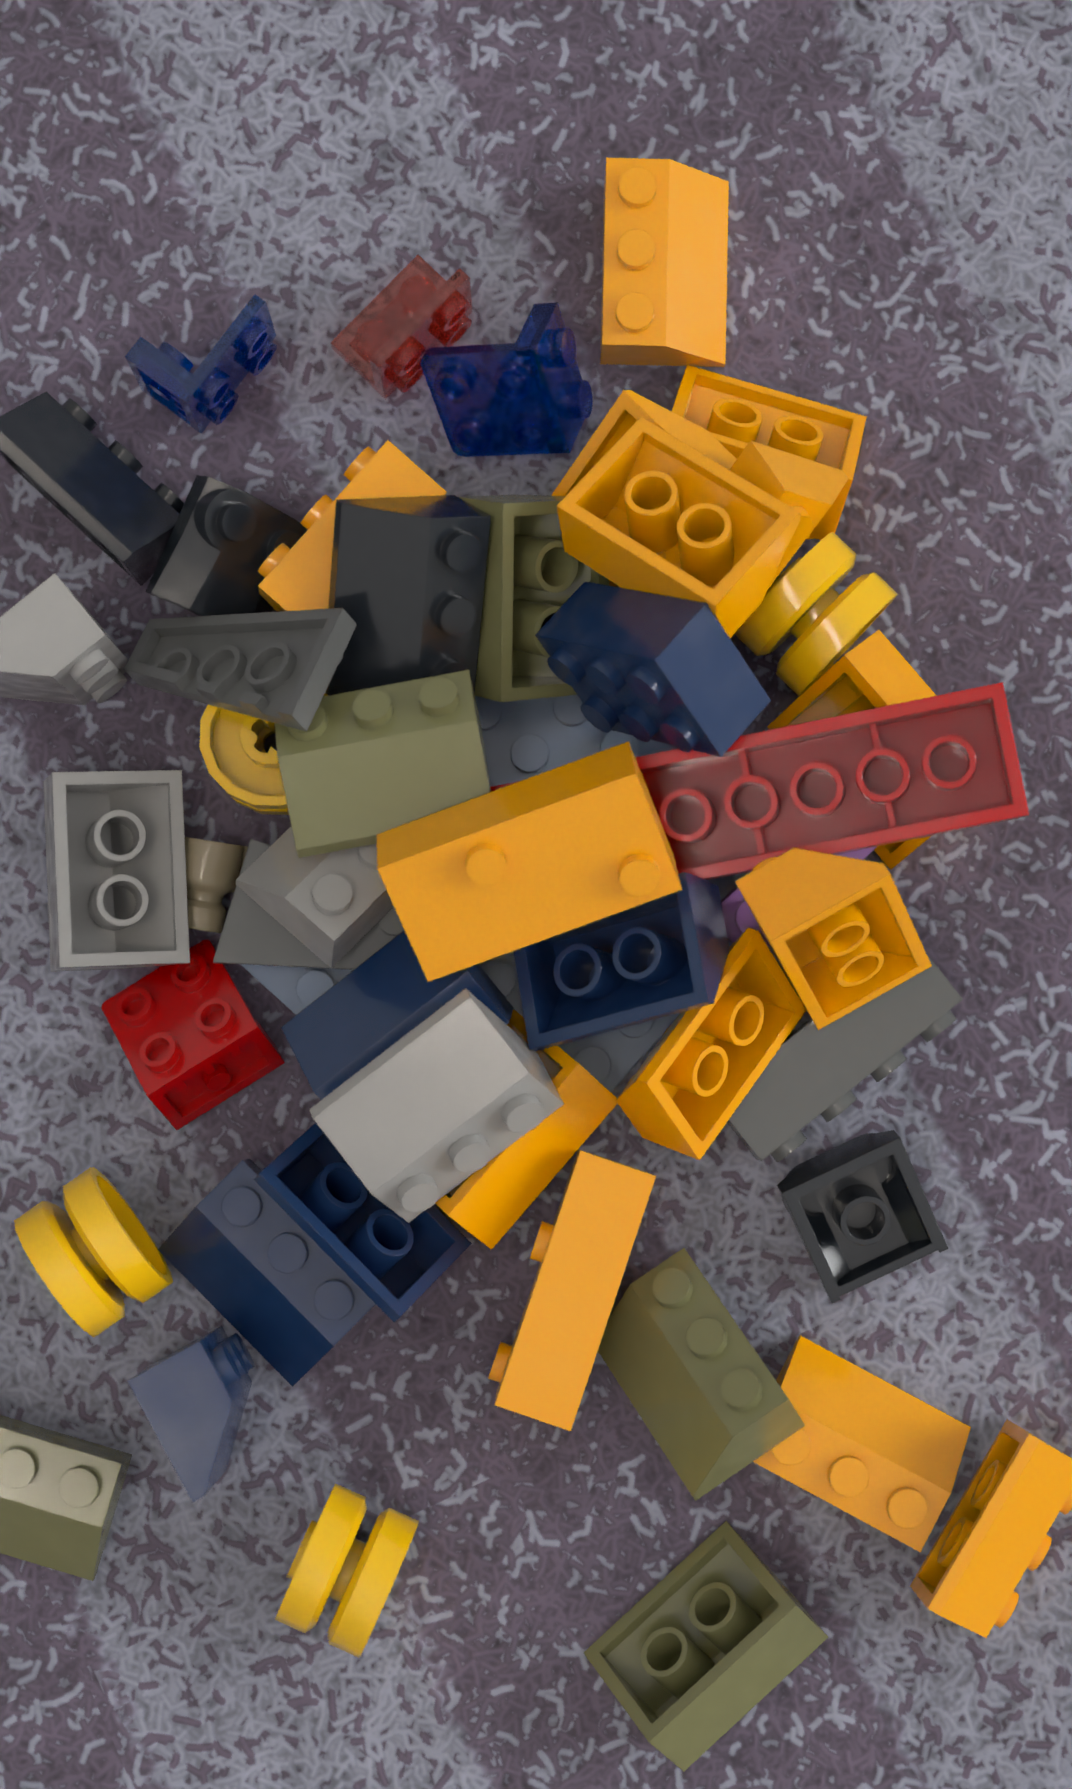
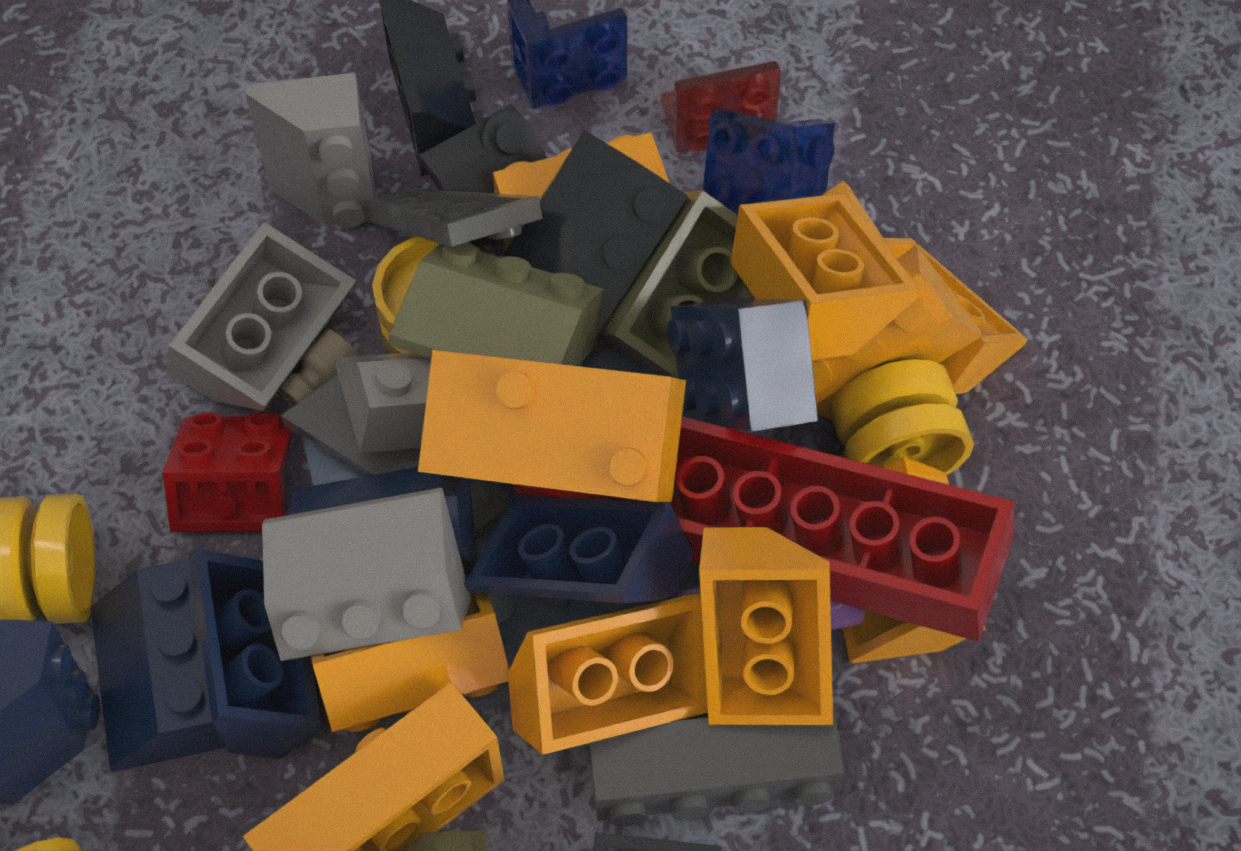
camera: 35 degrees right, 25 degrees down
(663, 264) = (932, 161): light orange slope -> none

